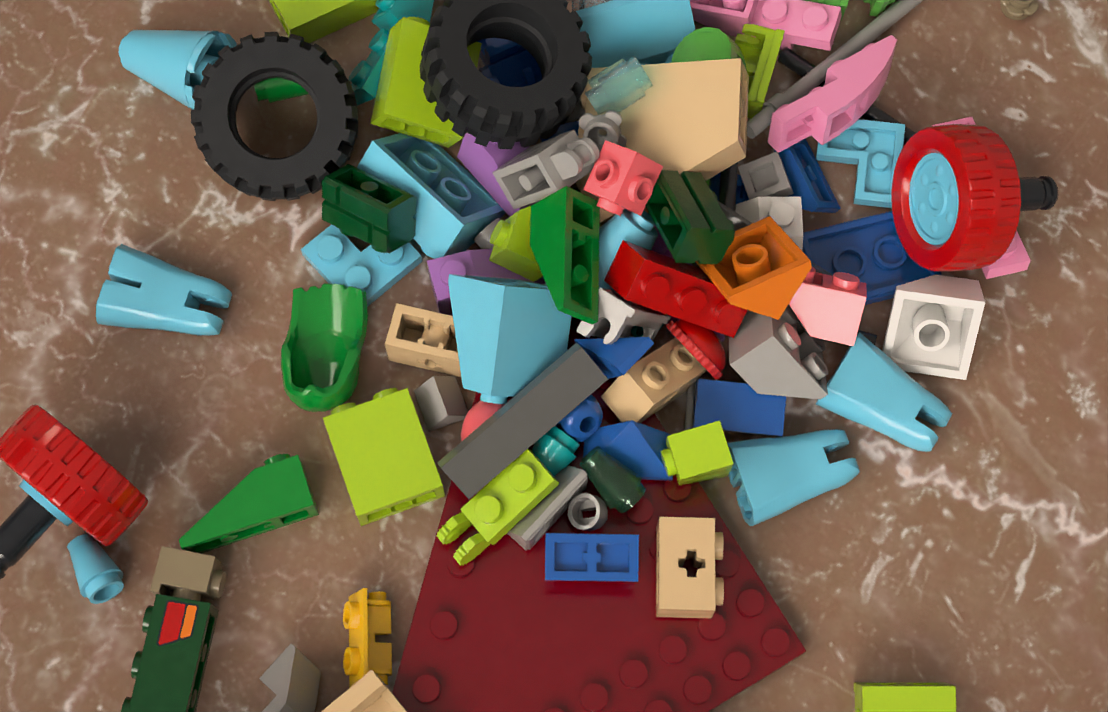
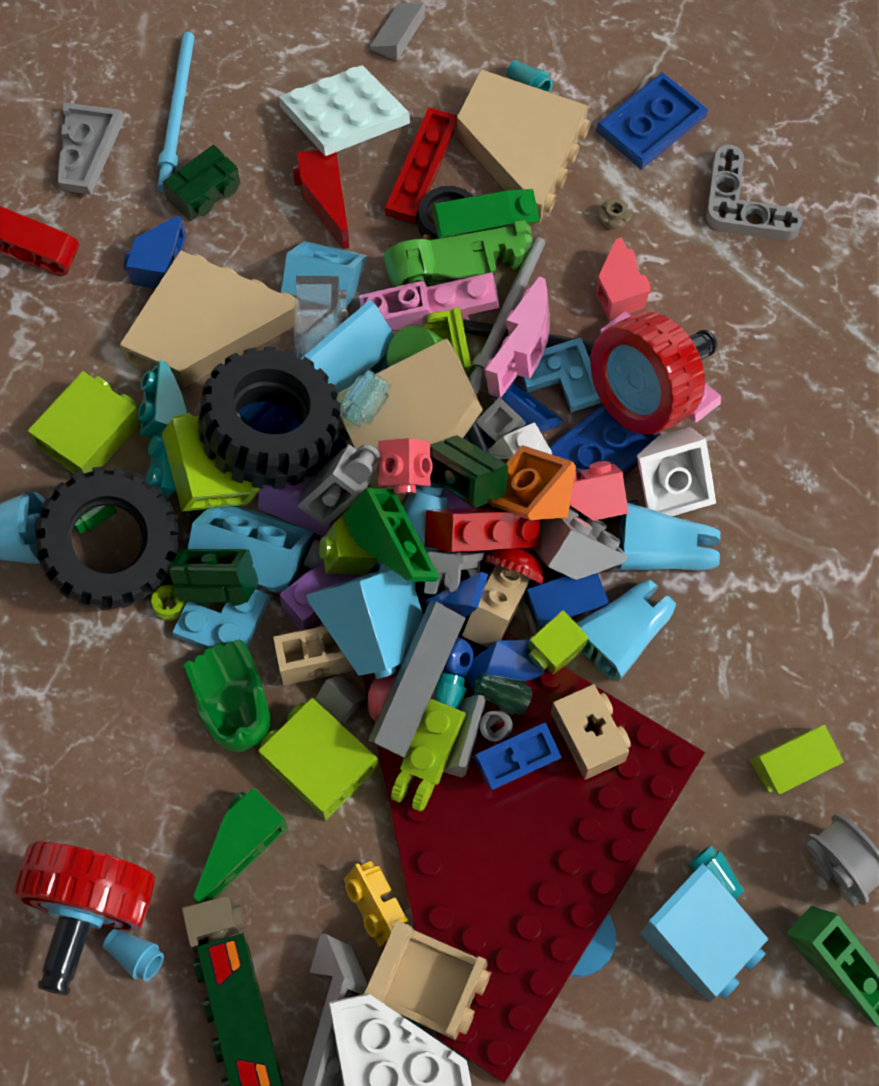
camera: 25 degrees left, 5 degrees down
(158, 296) = (79, 718): medium azure piece -> none
(300, 214) = (168, 614): none -> lime bush
(609, 121) = (371, 427): light grey plate -> none
(983, 83) = (620, 283): none -> coral slope

